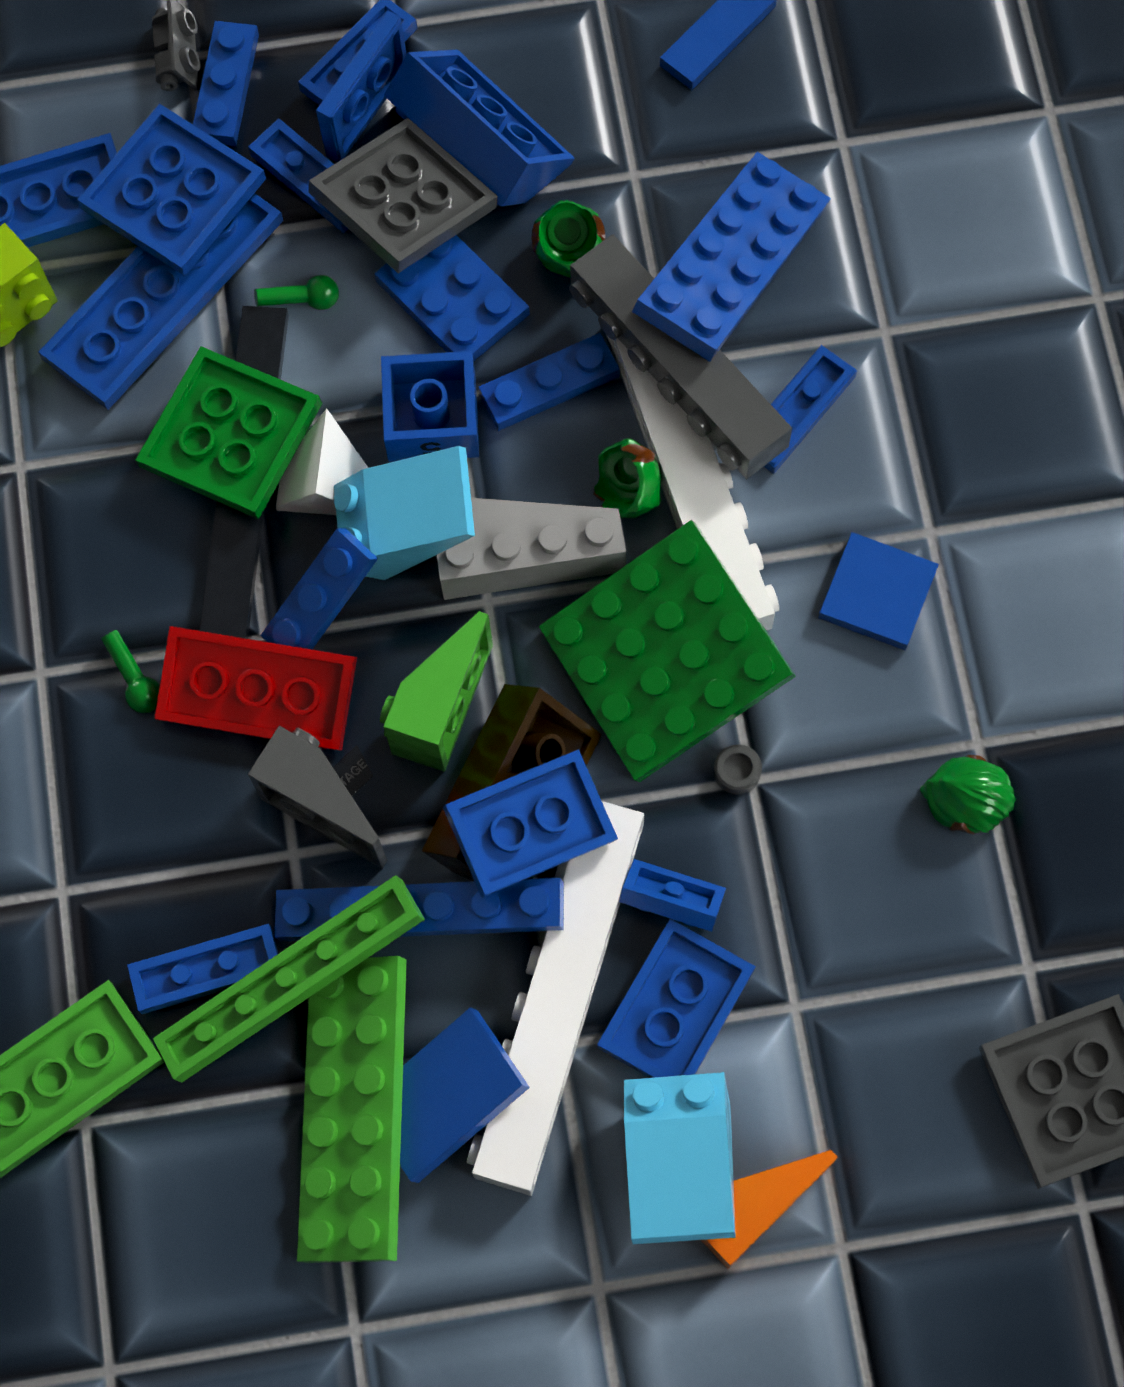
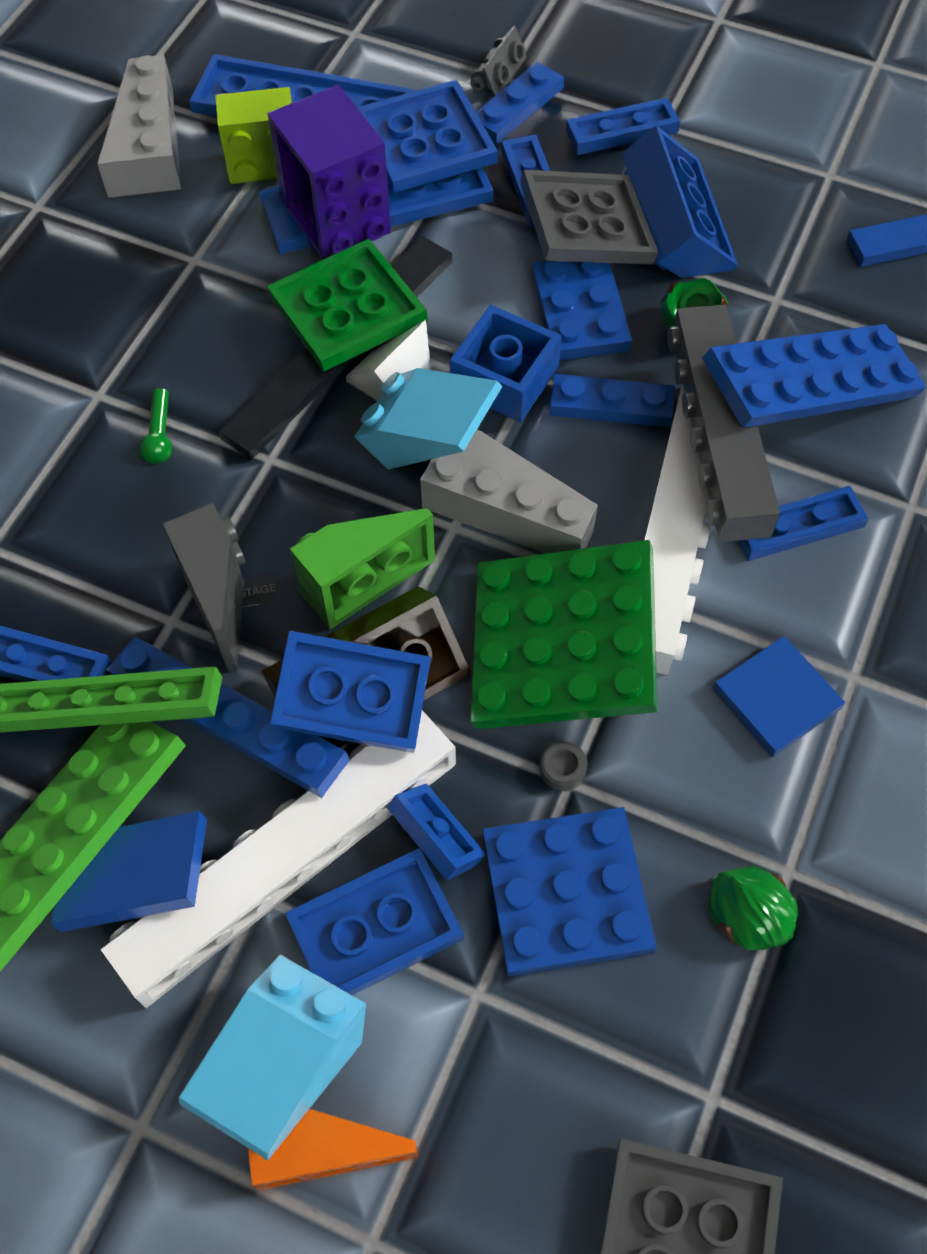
camera: 30 degrees right, 10 degrees down
(129, 304) = (331, 171): none -> dark purple container
(254, 686) = (218, 466): red plate -> none
(319, 292) = (484, 258): green bar -> none
(321, 592) = (323, 443): blue plate -> none
(361, 87) = (599, 137): blue tile -> none
(628, 479) = (624, 494): green hair -> none
(811, 875) = (567, 892): none -> blue plate

